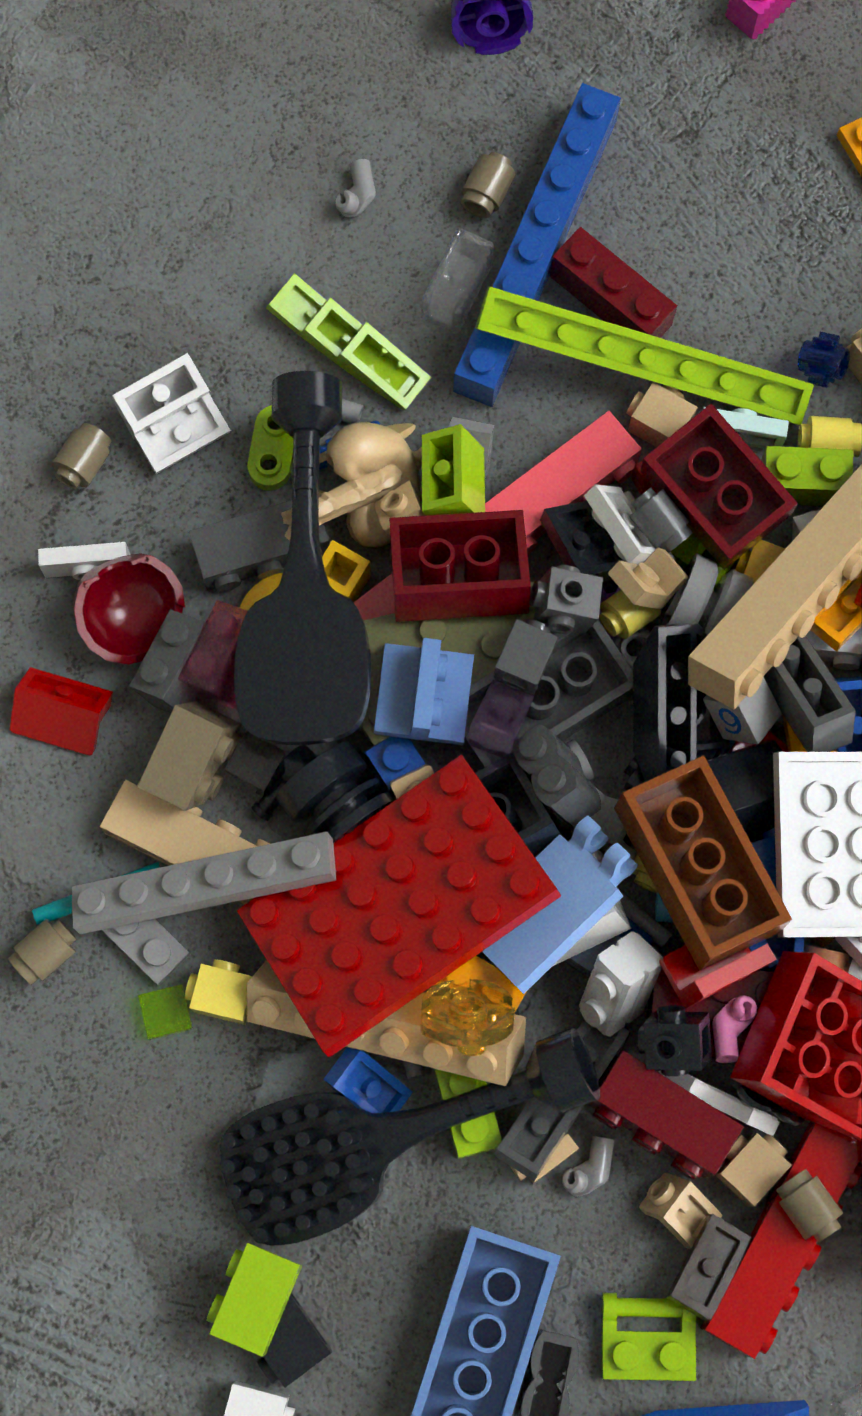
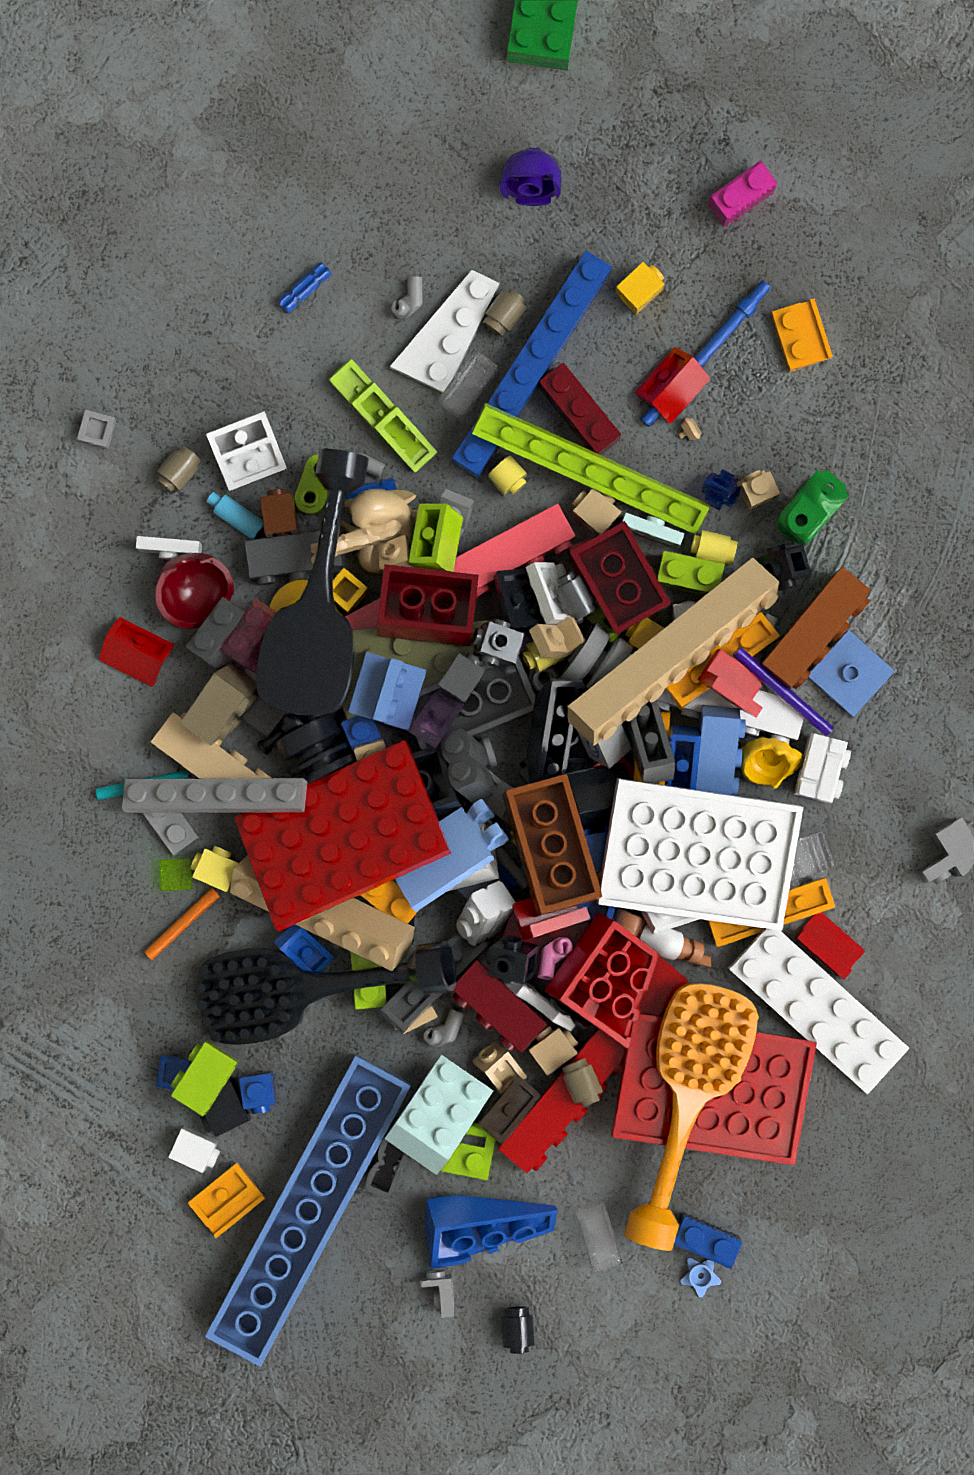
camera: 10 degrees right, 10 degrees up
(43, 951) = (99, 819): dark tan brick -> none
(171, 504) = (236, 515): none -> medium azure cylinder
(185, 1082) = (182, 923): none -> orange bar
(199, 1299) = (168, 1070): none -> blue tile
(214, 198) = (304, 287): none -> blue axle
(230, 483) = (279, 513): none -> reddish brown brick
(336, 1308) = (258, 1092): none -> blue brick
(417, 227) = (445, 339): none -> white wing
(467, 1015) = (362, 921): clear yellow plate -> none
(532, 390) = (508, 476): none -> light yellow plate
(610, 1293) = (439, 1115): none -> light aqua brick
(660, 125) = (640, 287): none -> yellow brick
(730, 239) = (673, 384): none -> red panel
(764, 294) = (690, 429): none -> tan rock
(801, 133) = (744, 309): none -> blue bar

